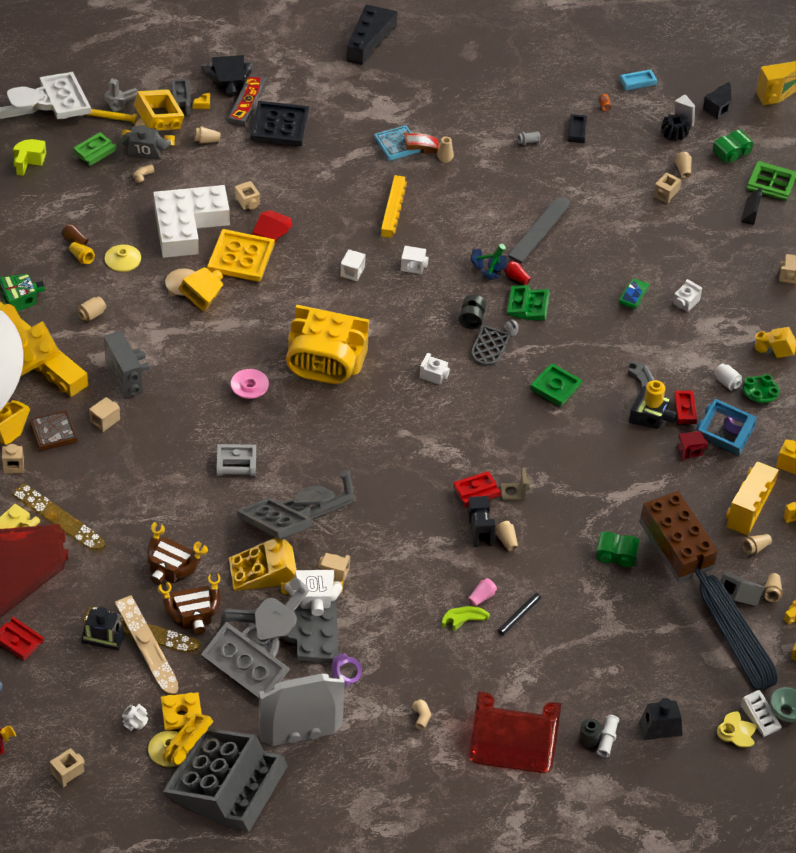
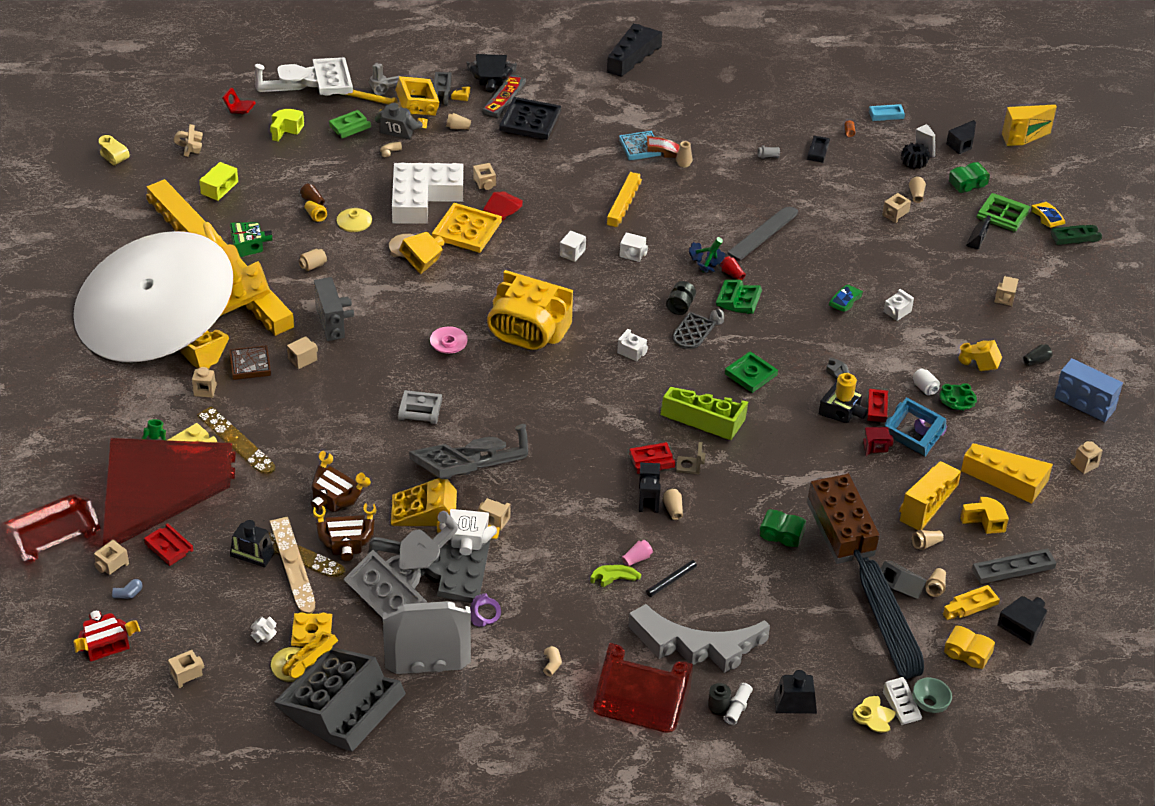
camera: 10 degrees right, 5 degrees down
(519, 434) = (704, 412): none -> lime wedge
(555, 681) = (695, 645): none -> light grey arch

